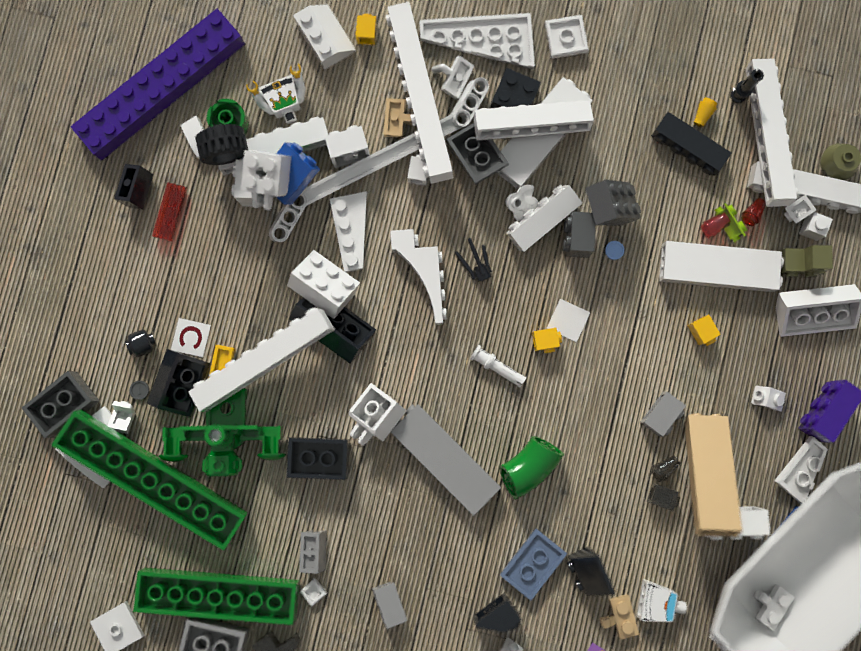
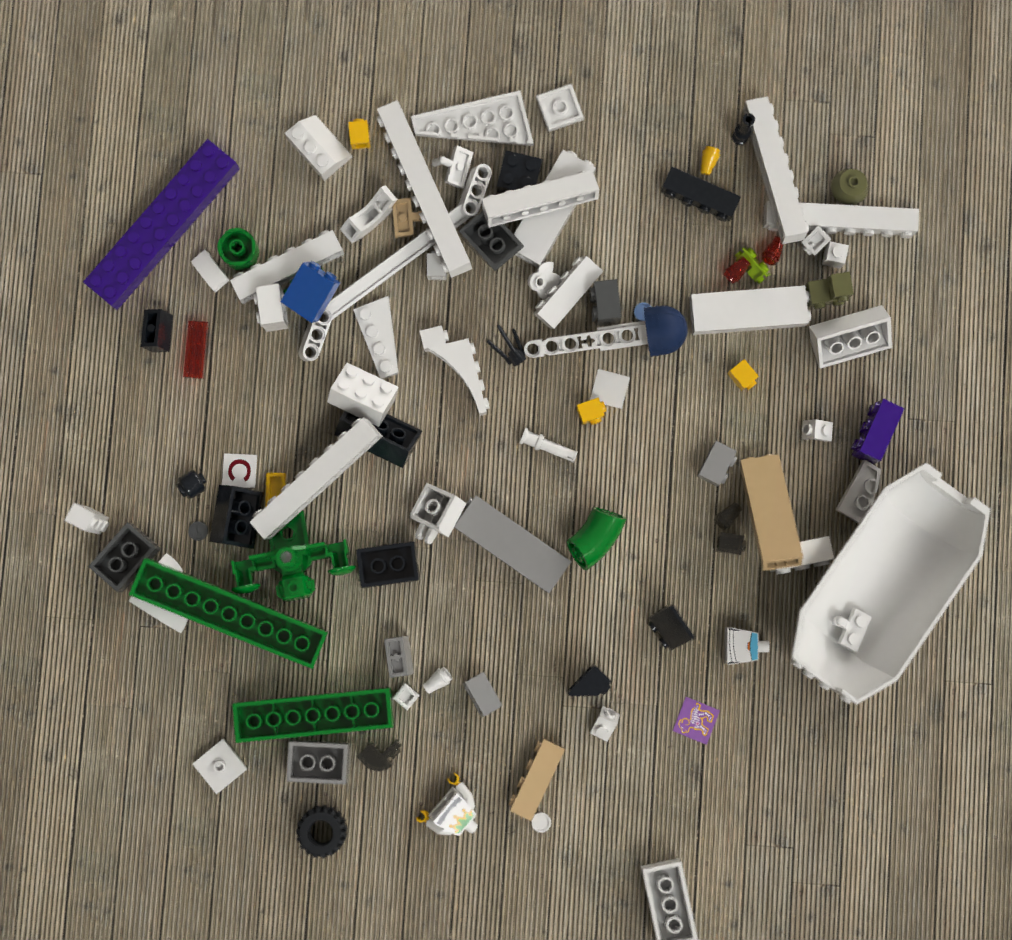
camera: 15 degrees left, 0 degrees up
(28, 360) = (87, 519): none -> white brick
(122, 417) = (187, 558): white bracket -> none
(221, 144) = (239, 275): black tyre -> none
(265, 175) = (282, 306): white hinge -> none
(281, 96) = (287, 215): white torso -> none
(347, 146) = (362, 254): white brick -> none
(347, 582) = (438, 680): none -> white cone
(363, 109) = (370, 216): none -> white arch
(533, 564) = (615, 630): sand blue plate -> none
(613, 203) = (632, 266): dark grey brick -> none
(621, 617) = (710, 667): tan plate -> none
(632, 270) = (662, 331): none -> piece

